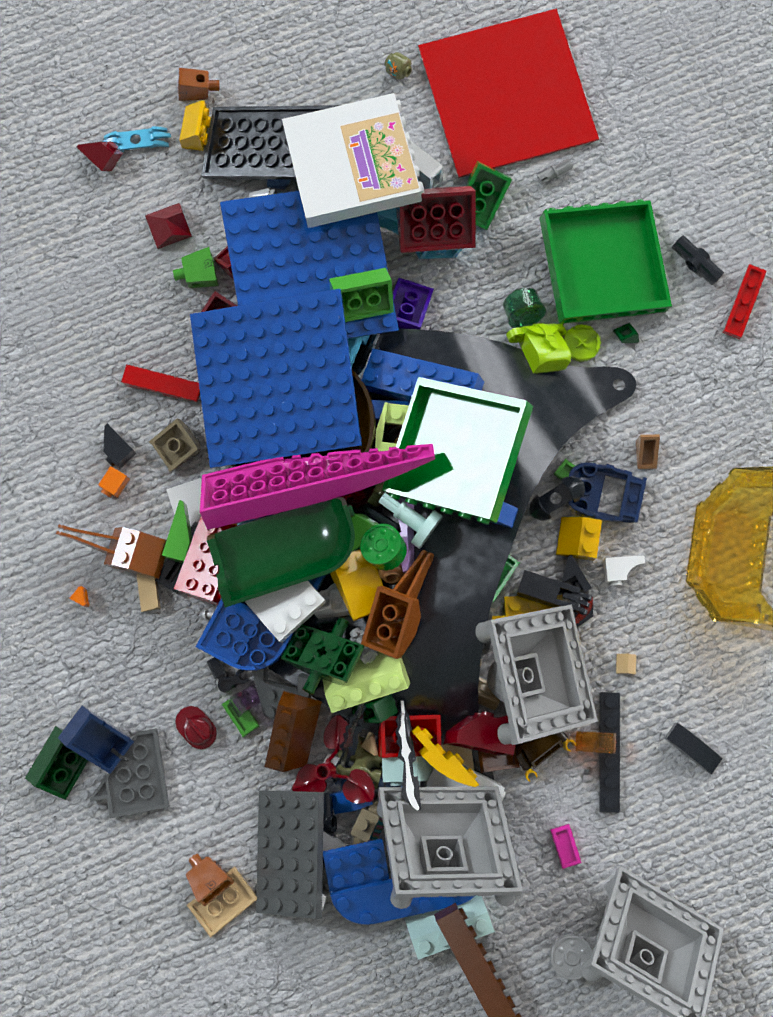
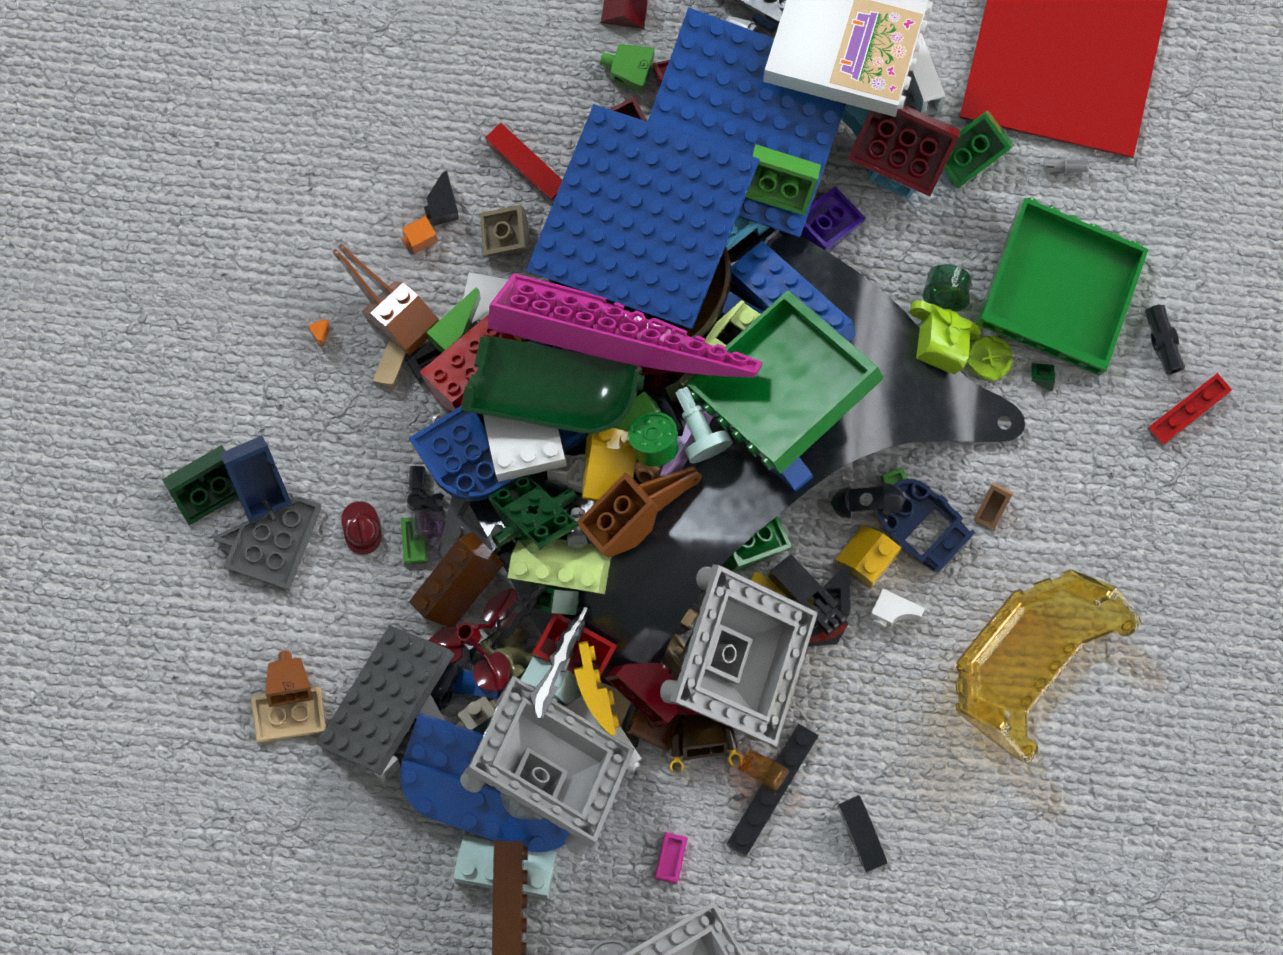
camera: 25 degrees right, 5 degrees down
(370, 744) = (529, 639): tan slope -> none
(625, 663) = (843, 710): tan slope -> none

